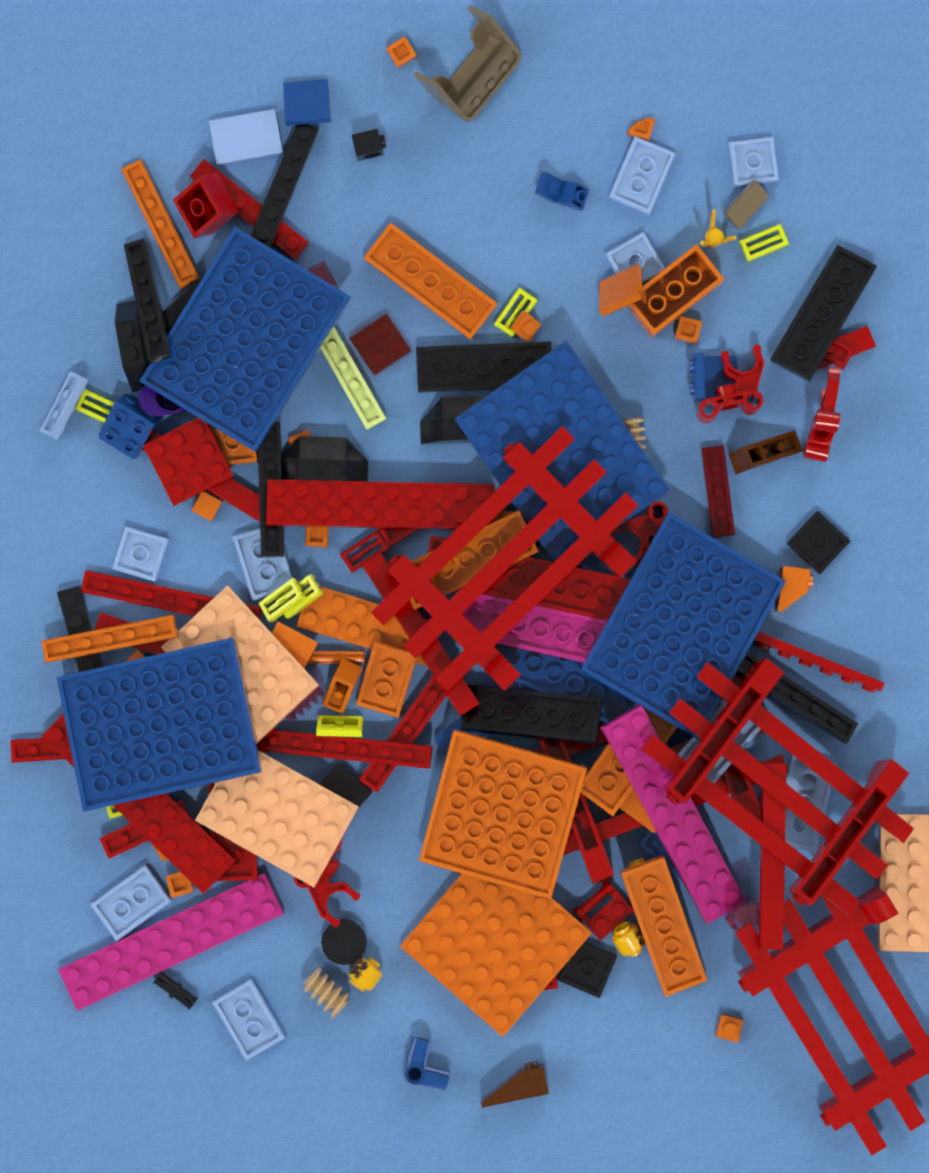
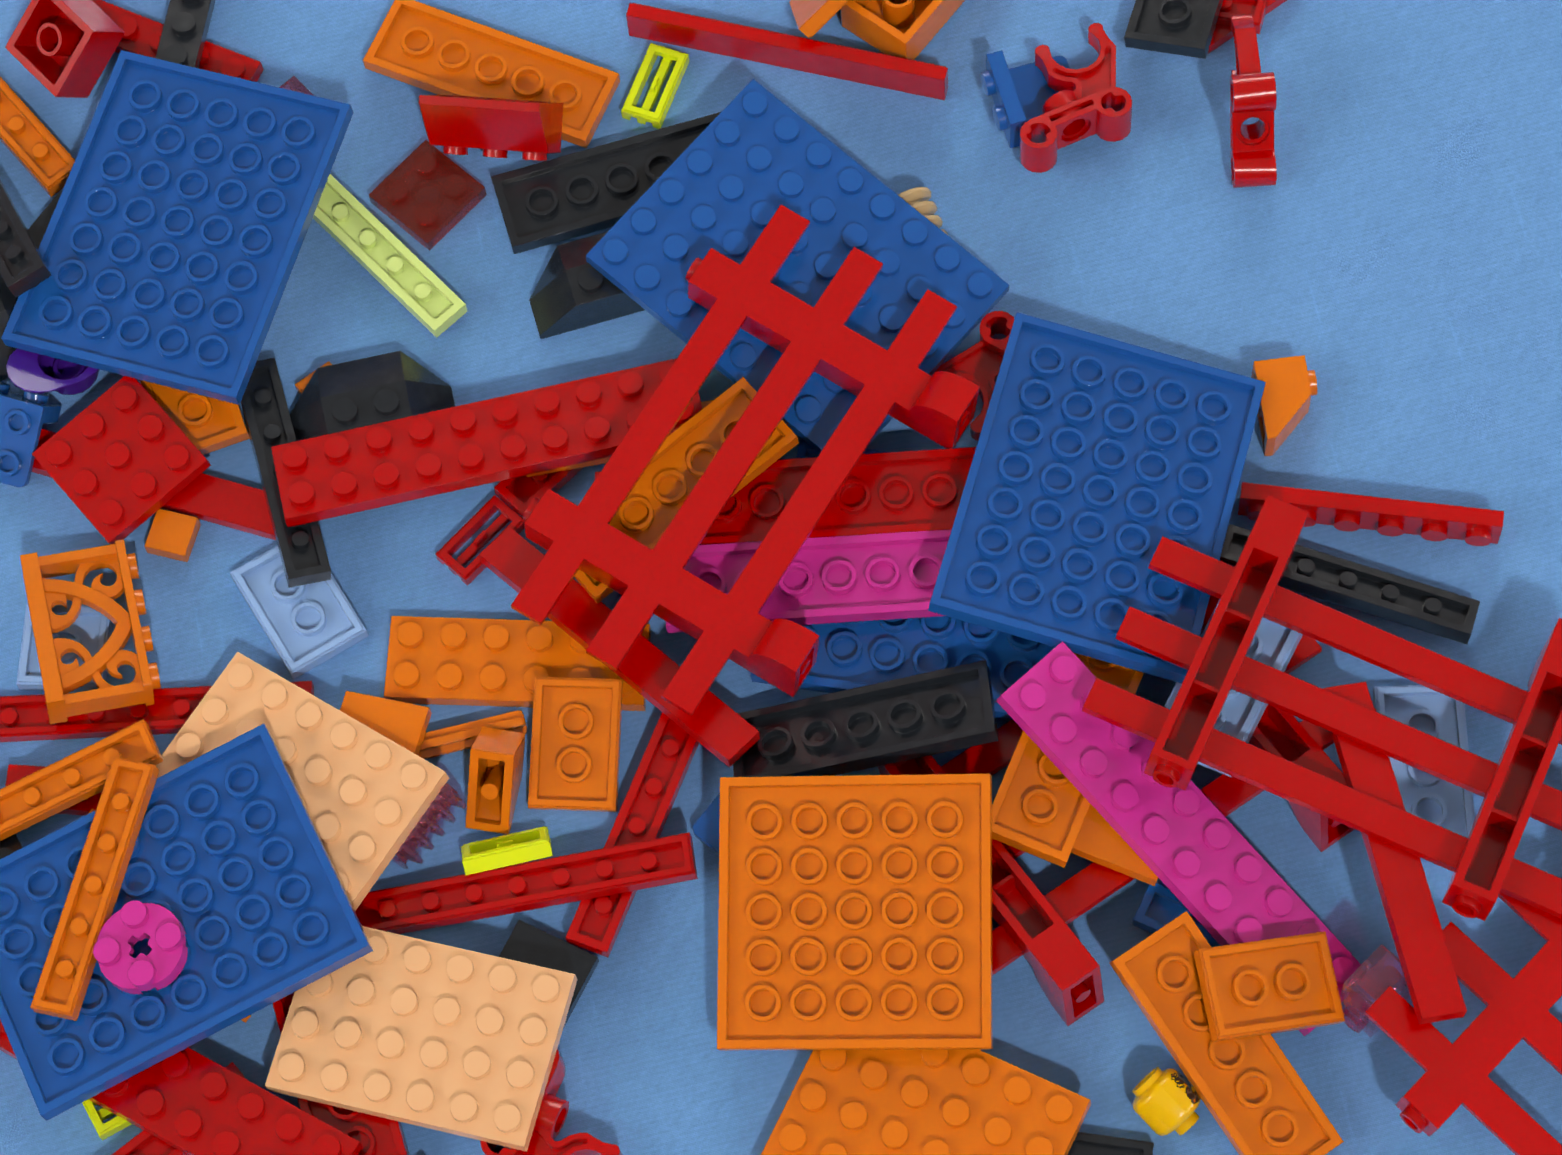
camera: 10 degrees left, 20 degrees down
(131, 702) = (94, 888): none -> orange tile
(133, 530) = (63, 678): none -> orange fence
(161, 742) = (124, 930): none -> dark pink plate
(287, 606) = (349, 656): neon yellow tile -> none
(309, 599) = (381, 643): neon yellow tile -> none
(317, 536) = (387, 534): orange tile -> none
(424, 319) = (493, 125): none -> red slope
(525, 326) = (677, 98): orange plate -> none
(590, 313) = (787, 51): none -> red tile
(608, 916) = (1117, 1069): red plate -> none
(688, 330) = (967, 35): orange plate -> none
(693, 902) = (1268, 986): none -> orange tile
(717, 491) = (1096, 276): dark red tile -> none
(765, 452) = (1160, 192): reddish brown slope -> none
(818, 542) = (1305, 319): black tile -> none

